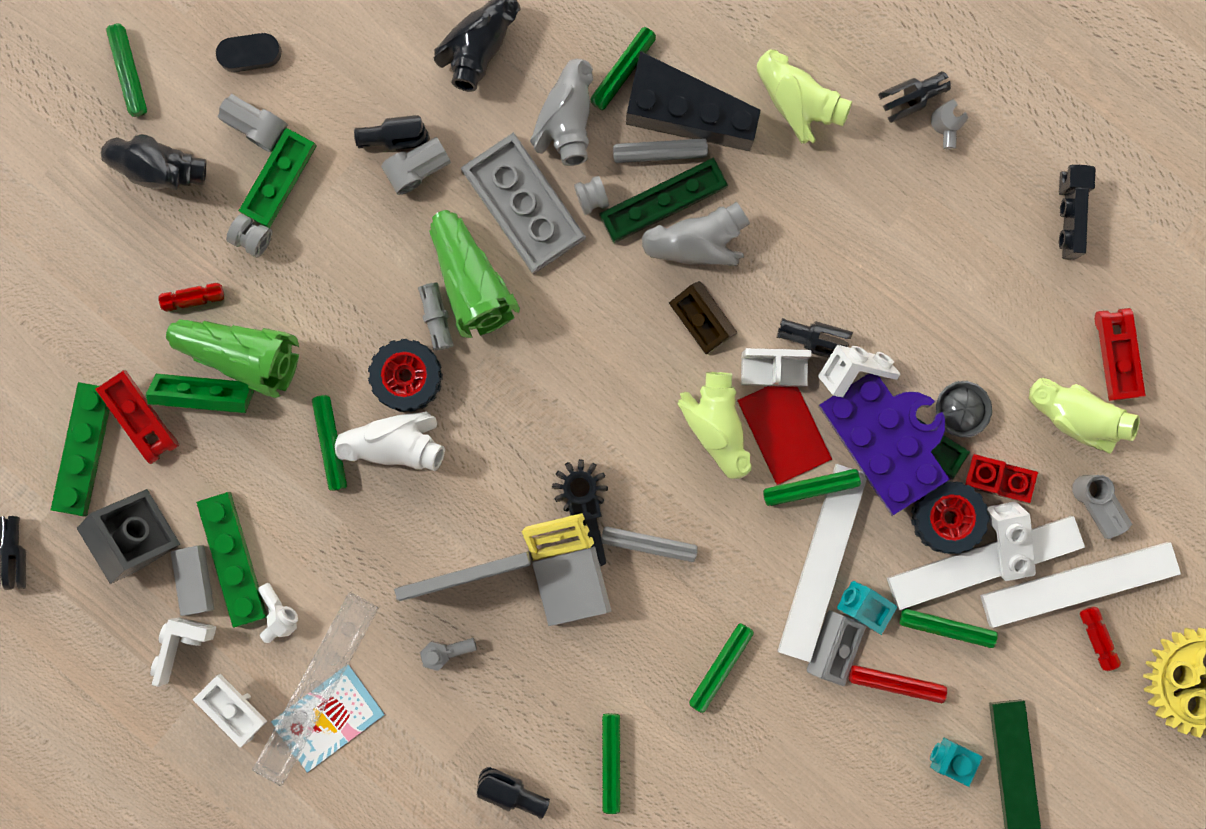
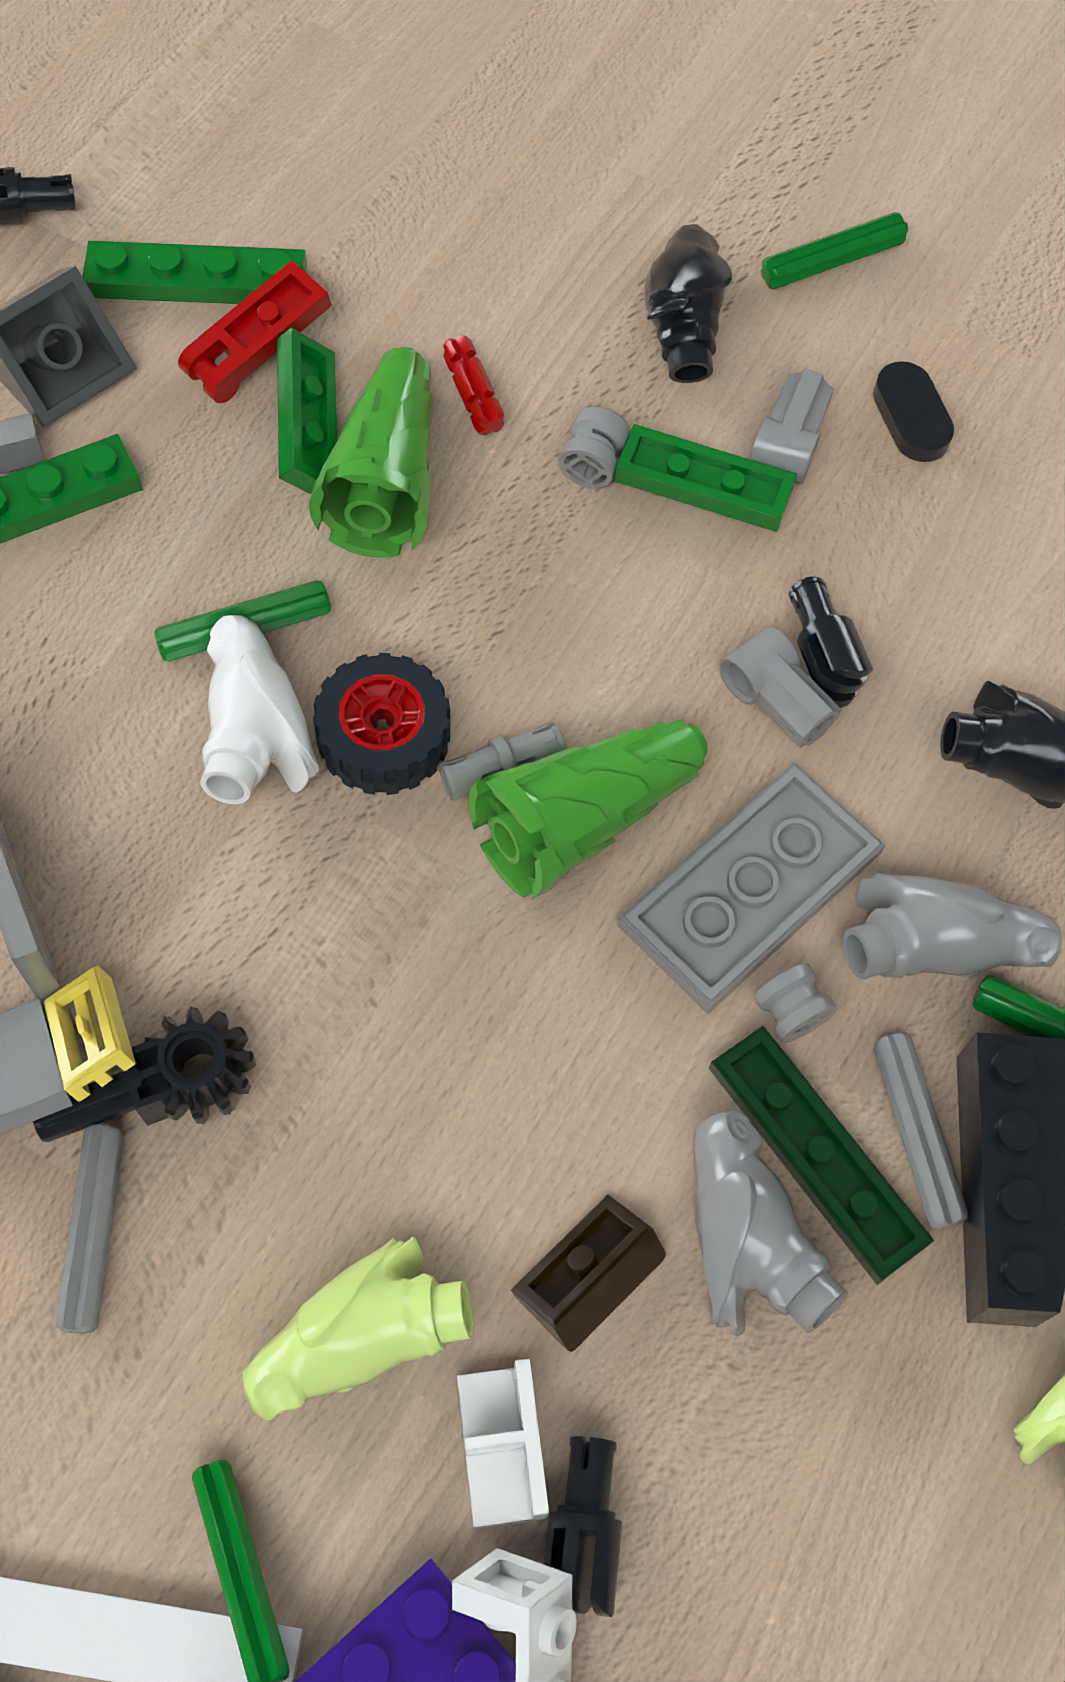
camera: 80 degrees right, 20 degrees down
(784, 431) = (365, 1497): red sticker -> none

